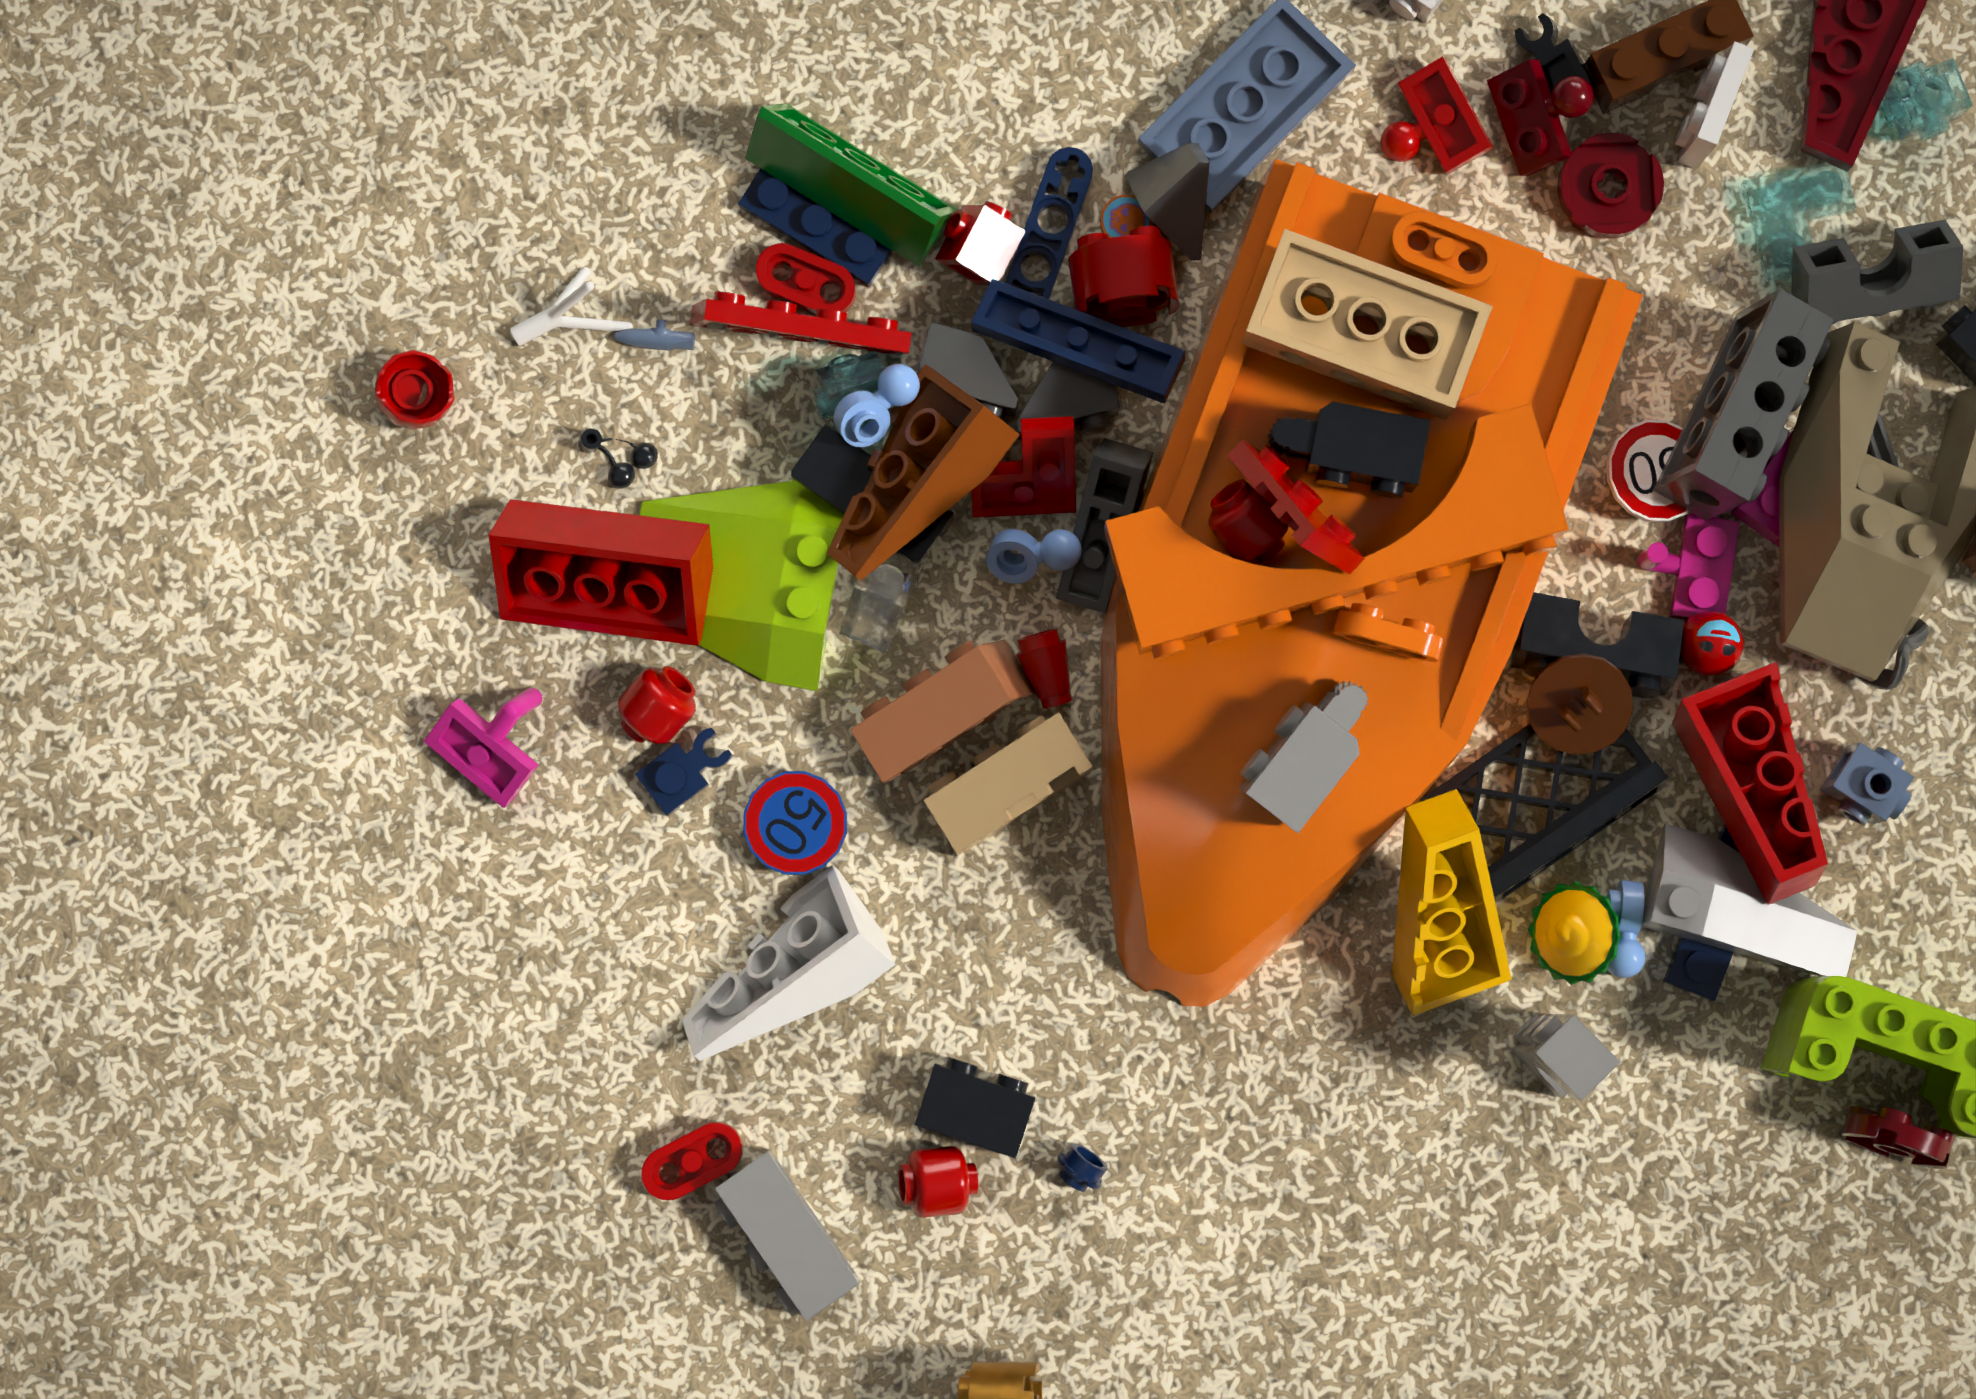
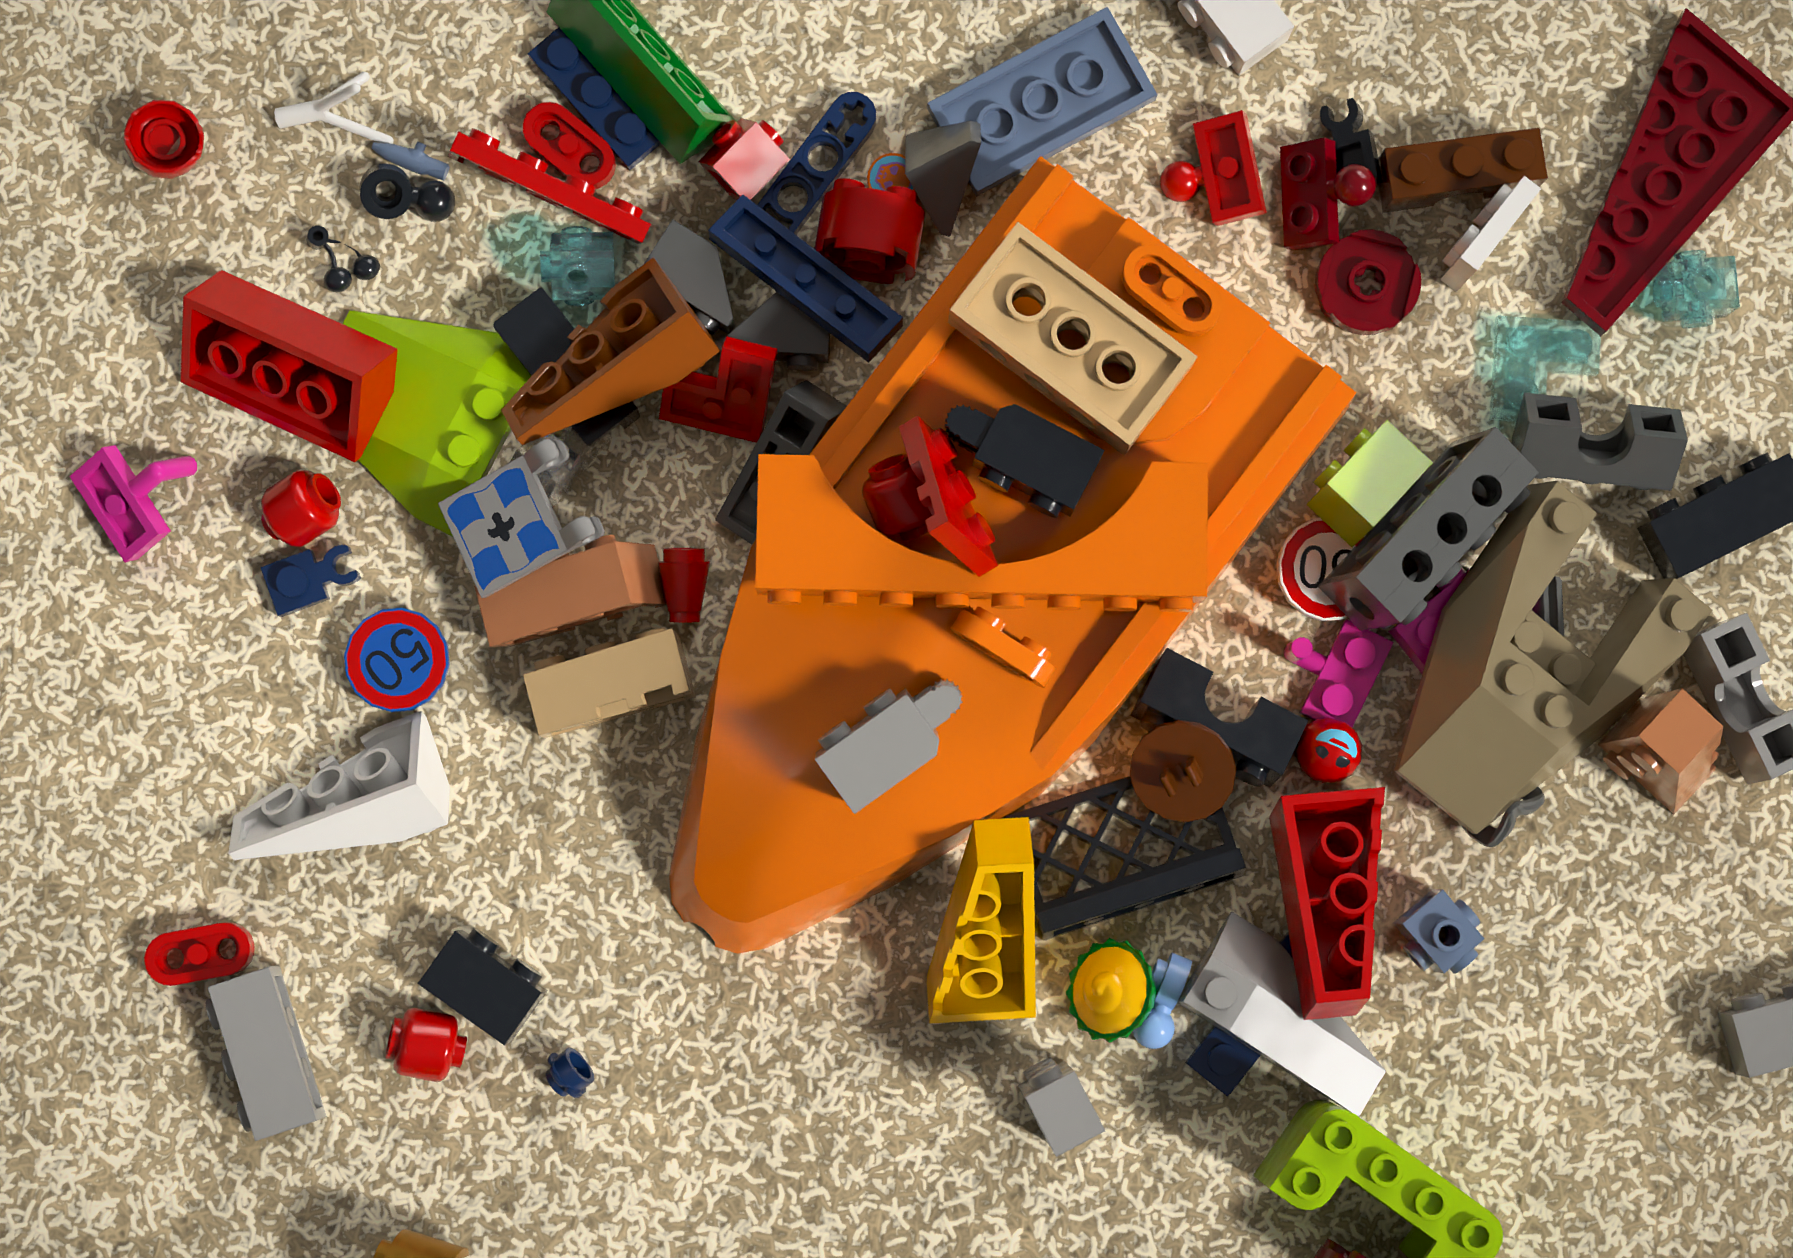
camera: 15 degrees right, 0 degrees up
(689, 372) = (431, 200): none -> black plate
(867, 658) = (509, 524): none -> light grey flag
(896, 387) = (616, 269): light blue plate -> none
(1058, 551) = (688, 467): light blue plate -> none
(1671, 376) = (1369, 482): none -> lime brick

